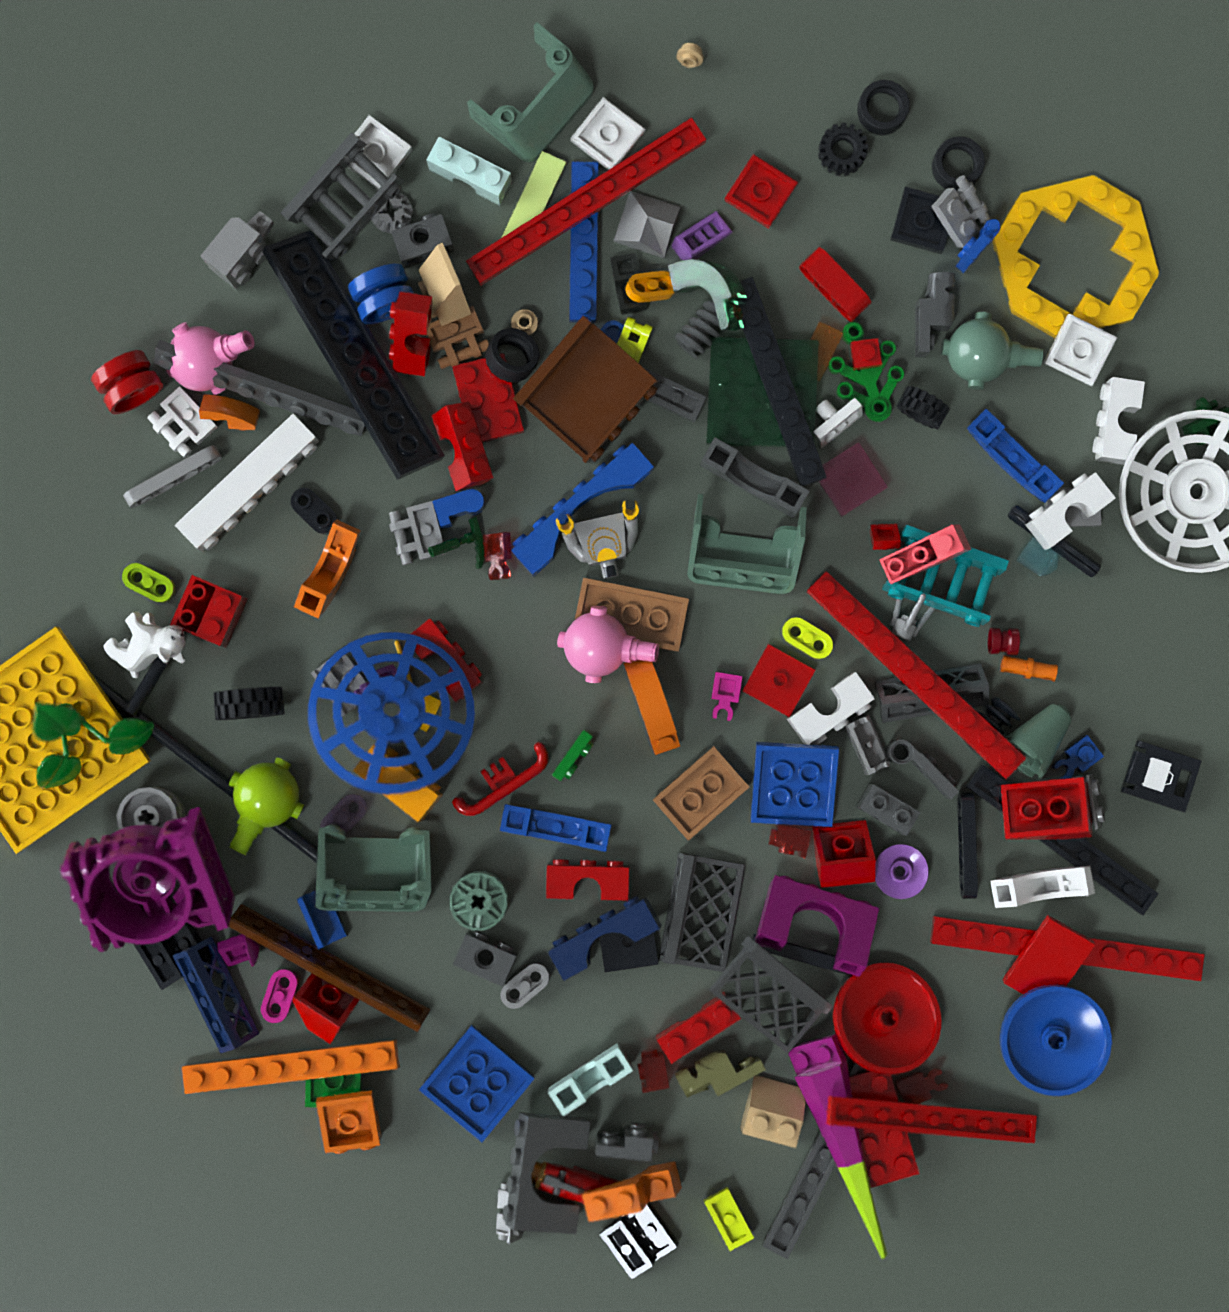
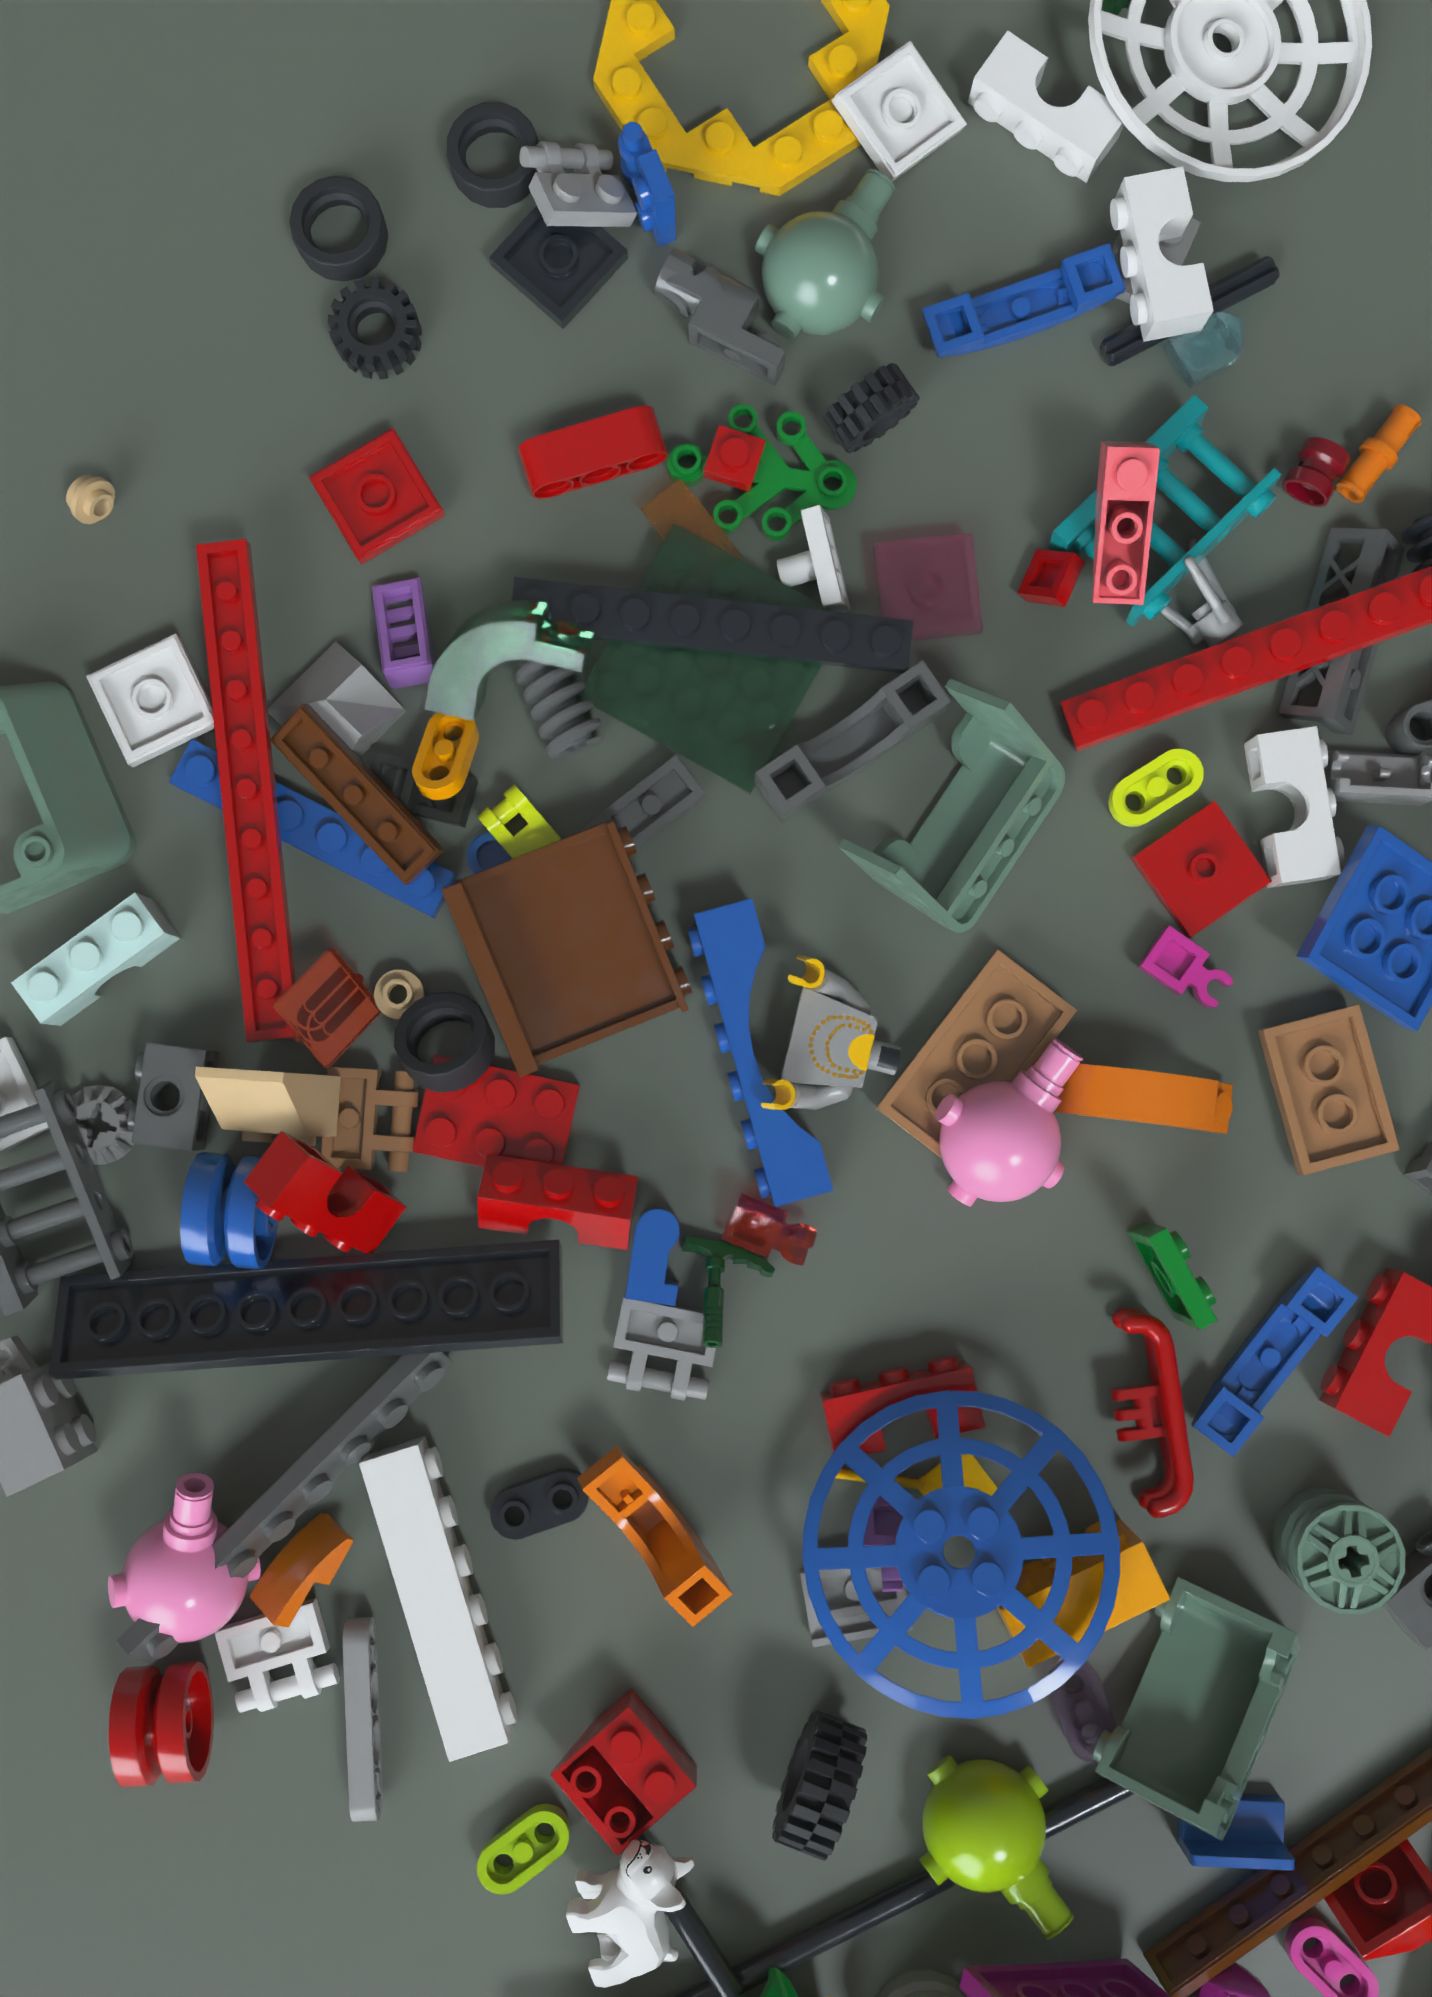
camera: 60 degrees left, 0 degrees up
(501, 291) = (328, 1007): none -> clear red piece
(537, 190) = (188, 864): yellowish green tile -> none
(610, 254) = (356, 794): none -> reddish brown tile

